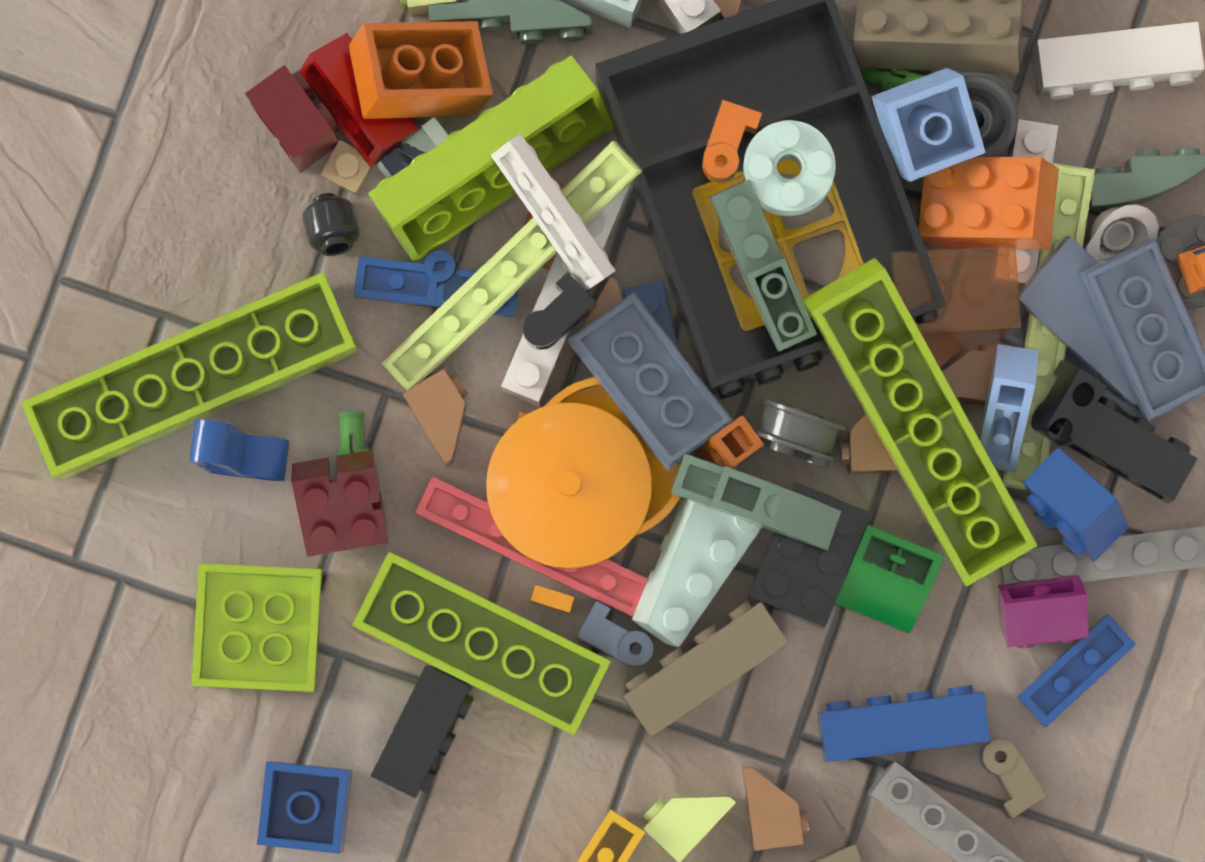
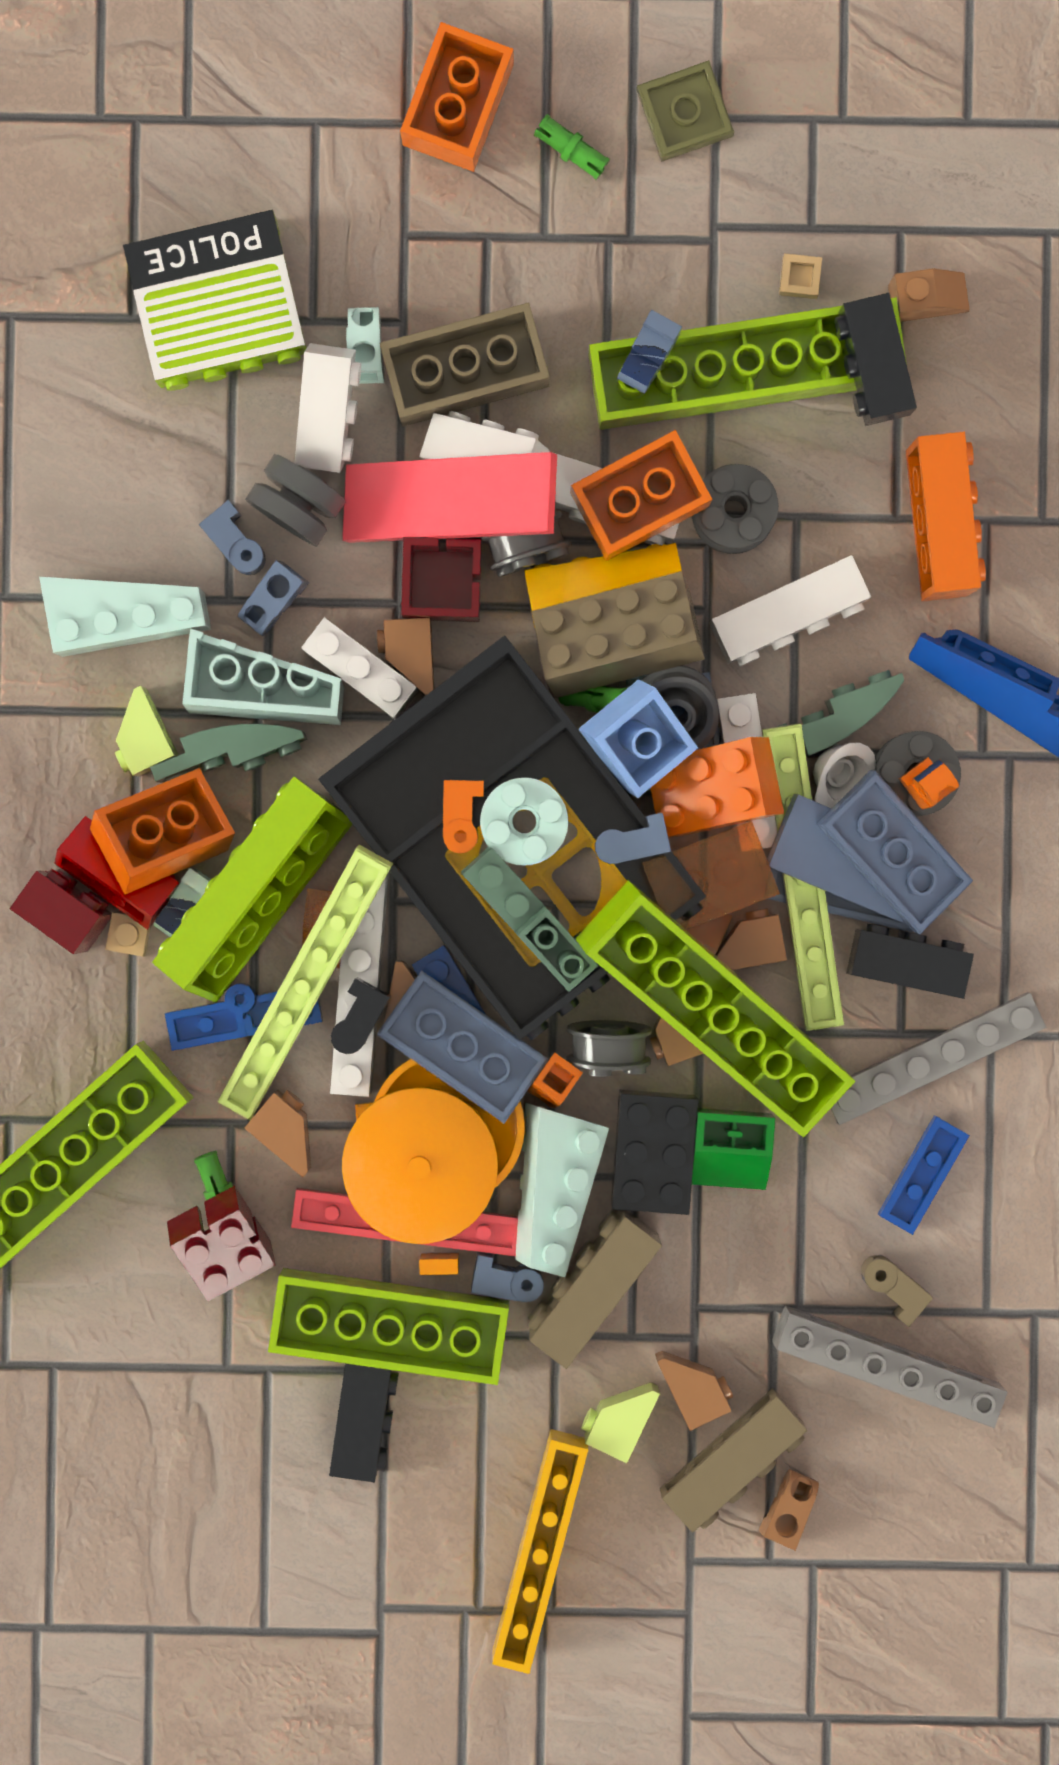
camera: 20 degrees left, 5 degrees up
(230, 452) = (108, 1230): blue beam -> none
(257, 627) = (185, 1373): lime plate -> none
(304, 807) = (280, 1520): blue brick -> none
(330, 224) = (129, 993): black head -> none
(553, 212) = (315, 924): white plate -> none
(756, 501) = (592, 1130): sand green slope -> none
(891, 227) = (618, 846): none -> sand blue leg
(903, 726) = (786, 1274): blue brick -> none
(1008, 404) = (789, 964): light blue slope -> none
(1043, 611) = (878, 1133): magenta brick -> none
(1067, 404) = (842, 944): black leg -> none
(1074, 505) = (869, 1029): blue brick -> none

